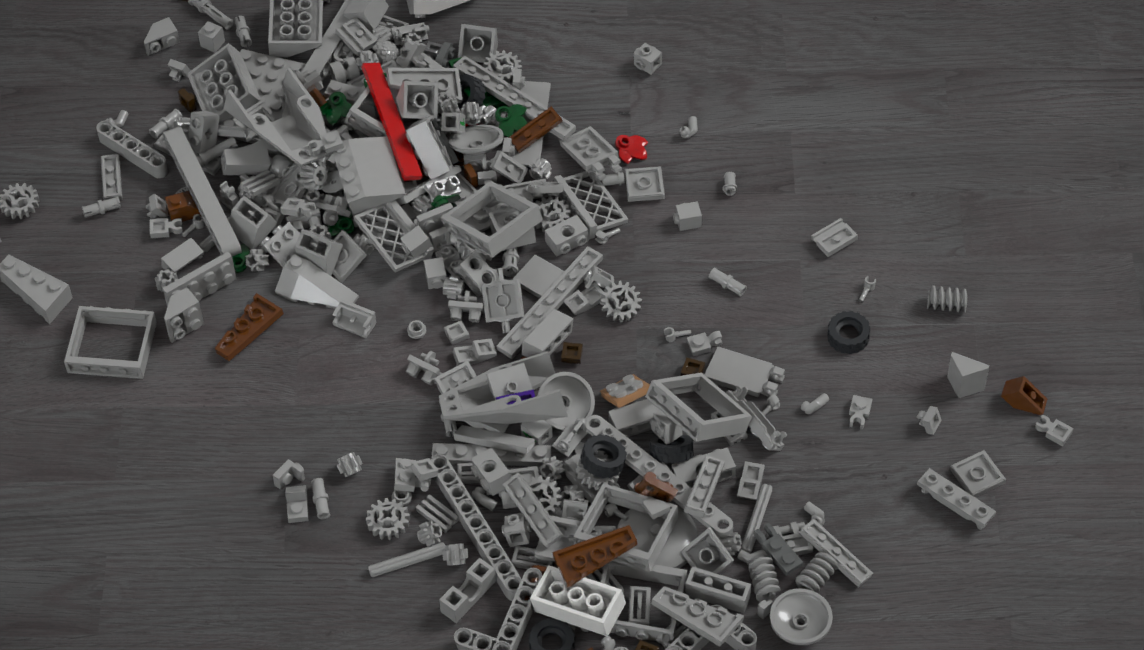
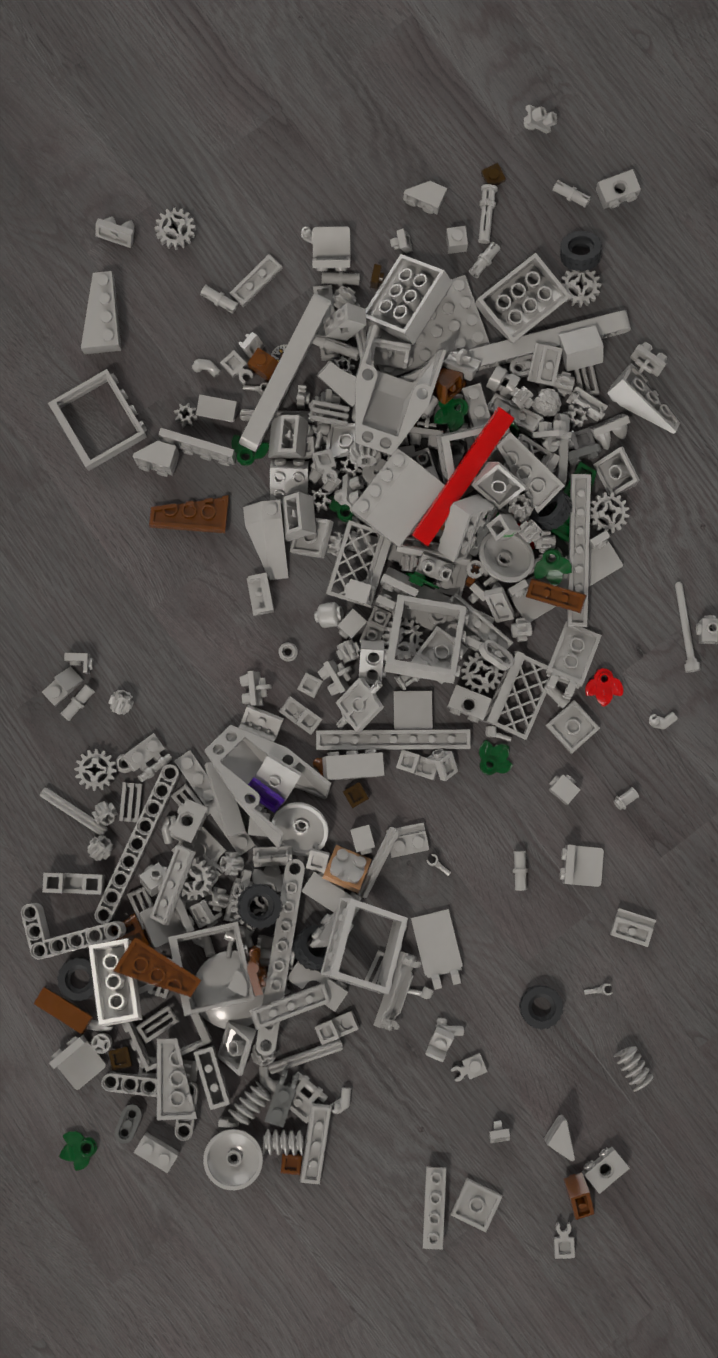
camera: 50 degrees right, 30 degrees up
(132, 149) = (293, 265): light grey beam -> none
(138, 112) = (331, 248): none -> light grey bracket
(142, 246) = (204, 364): none -> light grey arm
(257, 260) = (258, 470): light grey gear -> none
(328, 142) = (394, 447): light grey plate -> none
(413, 282) = (329, 614): none -> light grey head
(424, 469) = (151, 769): light grey plate -> none
(442, 25) = (602, 430): none -> light grey tile
(467, 168) = (469, 568): none -> light grey bush
(601, 405) = (317, 860): none -> light grey tile
(611, 297) = (425, 801): light grey gear -> none
(611, 368) = (363, 839): none -> light grey brick
(624, 248) = (496, 756): none -> dark green plate
(634, 359) = (378, 862): none -> light grey axle
(638, 342) = (410, 840): none -> light grey plate
(664, 86) = (691, 663): none -> light grey piece
(692, 366) = (410, 905): dark brown plate -> none
(702, 344) = (442, 891): light grey plate -> none
(757, 240) = (582, 865): none -> light grey bracket
(822, 414) = (439, 1044): none -> light grey bracket
(839, 585) = (291, 1164): none -> reddish brown tile
(1014, 356) = (602, 1180): none -> light grey brick

